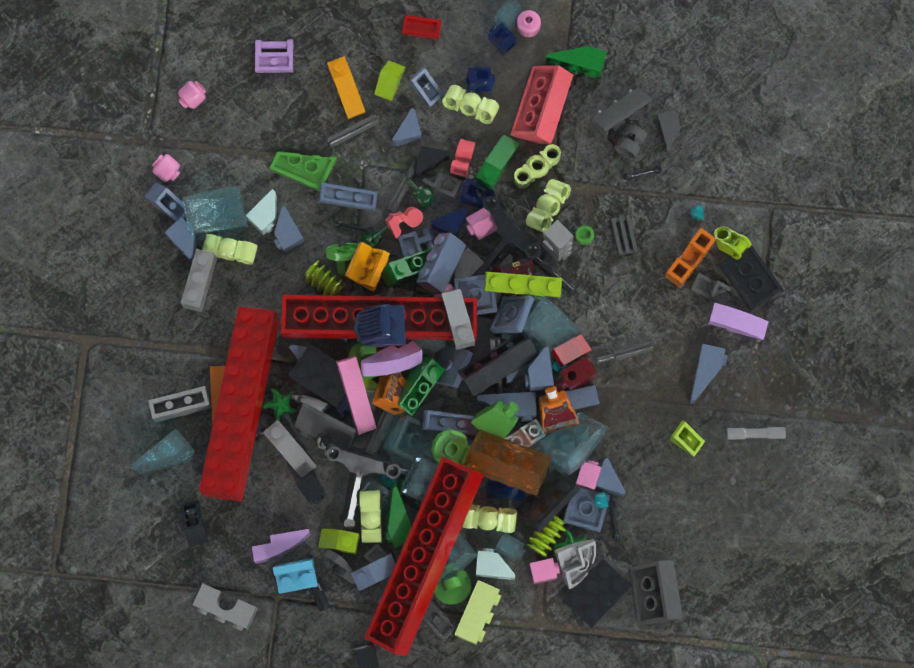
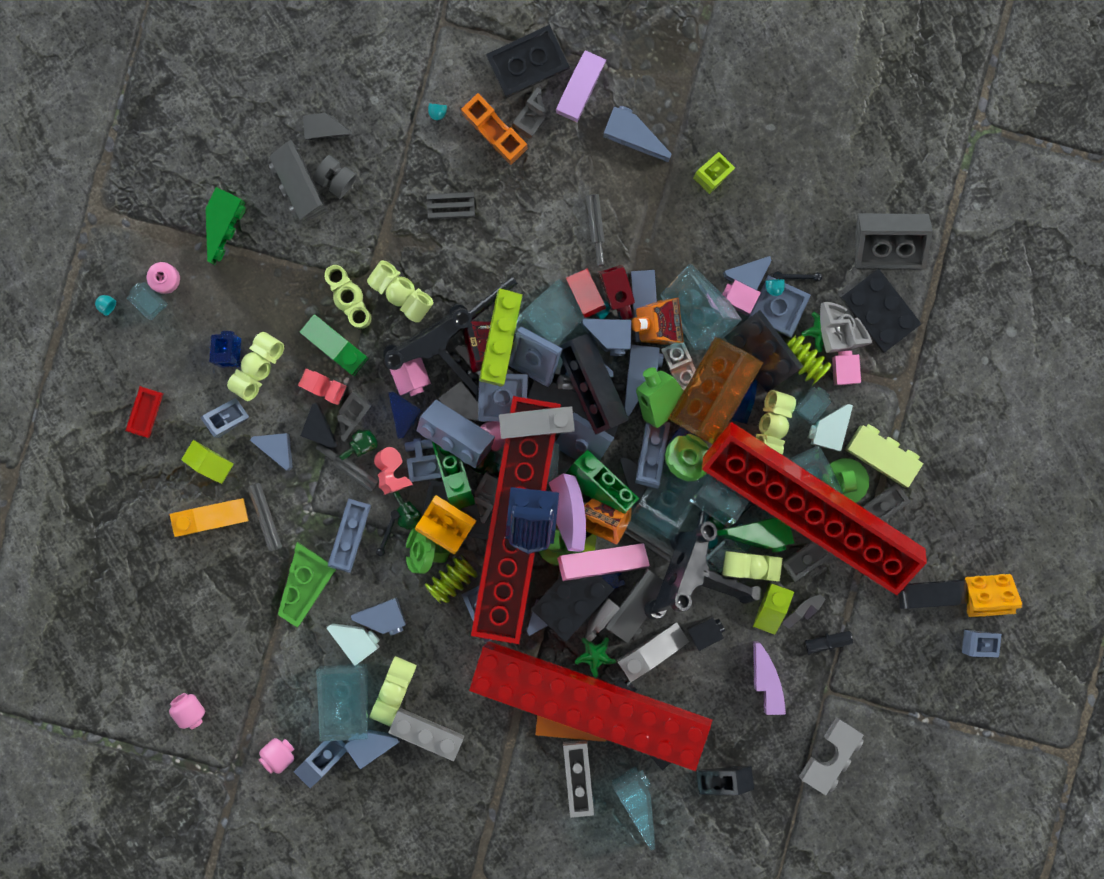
camera: 85 degrees left, 10 degrees up
(274, 61) = (159, 604): lavender plate -> none
(295, 575) = (807, 666): medium azure bracket -> none
(374, 572) = (819, 572): sand blue slope -> none
(474, 193) = (372, 377): clear blue slope -> none
(502, 31) = (180, 305): clear blue brick -> none
(542, 104) = (269, 278): coral slope -> none
(558, 241) = (451, 285): light grey arch -> none
(584, 235) = (442, 253): bright green tile -> none
(657, 169) = (374, 151): black hinge -> none
(731, 242) = (486, 73): lime piece -> none
(769, 433) = (721, 74): light grey piece -> none

